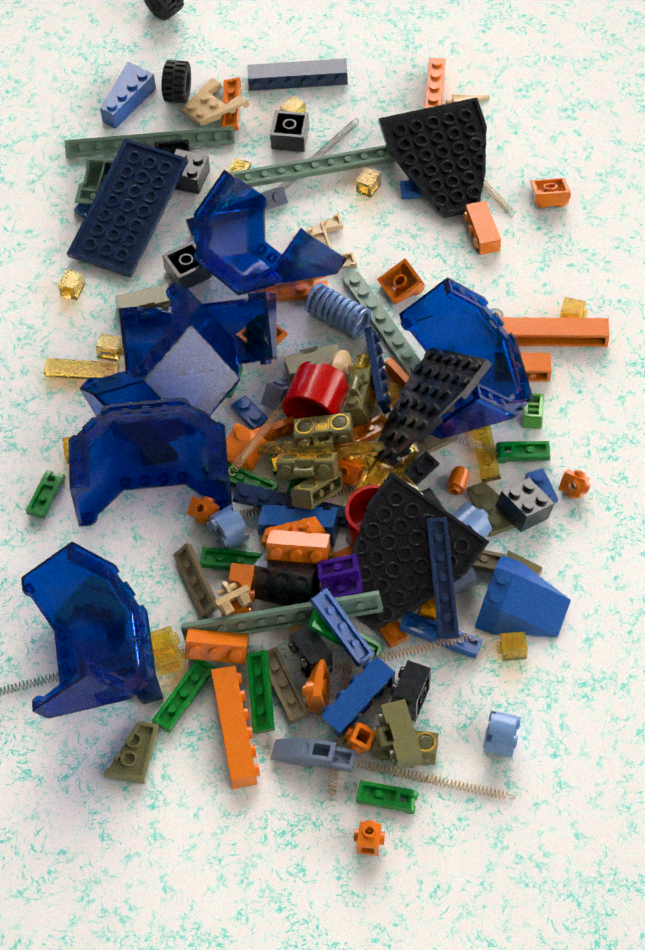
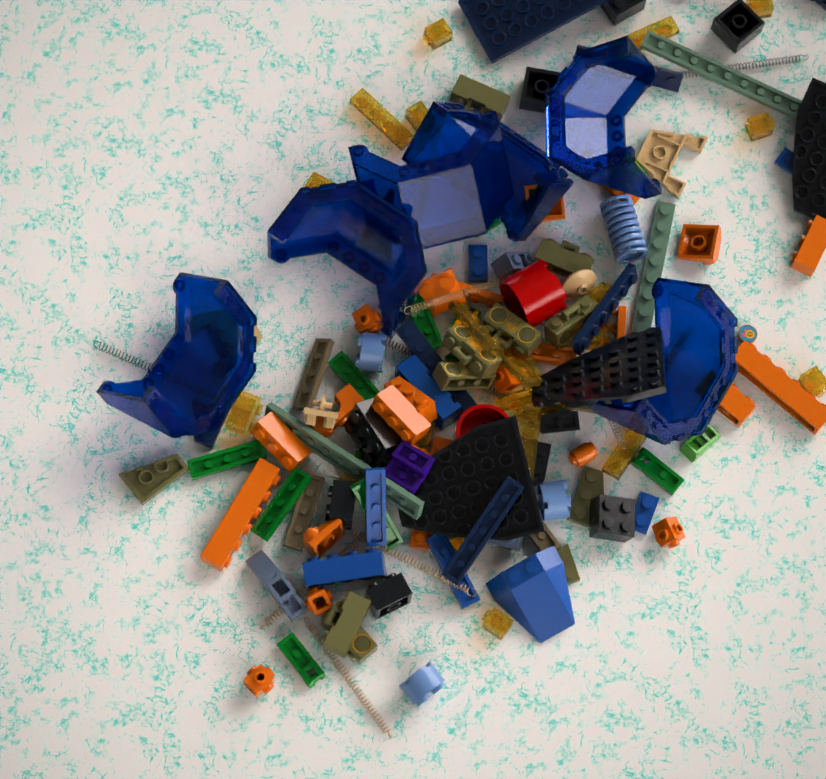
camera: 30 degrees right, 15 degrees up
(45, 494) = (264, 208): green plate -> none

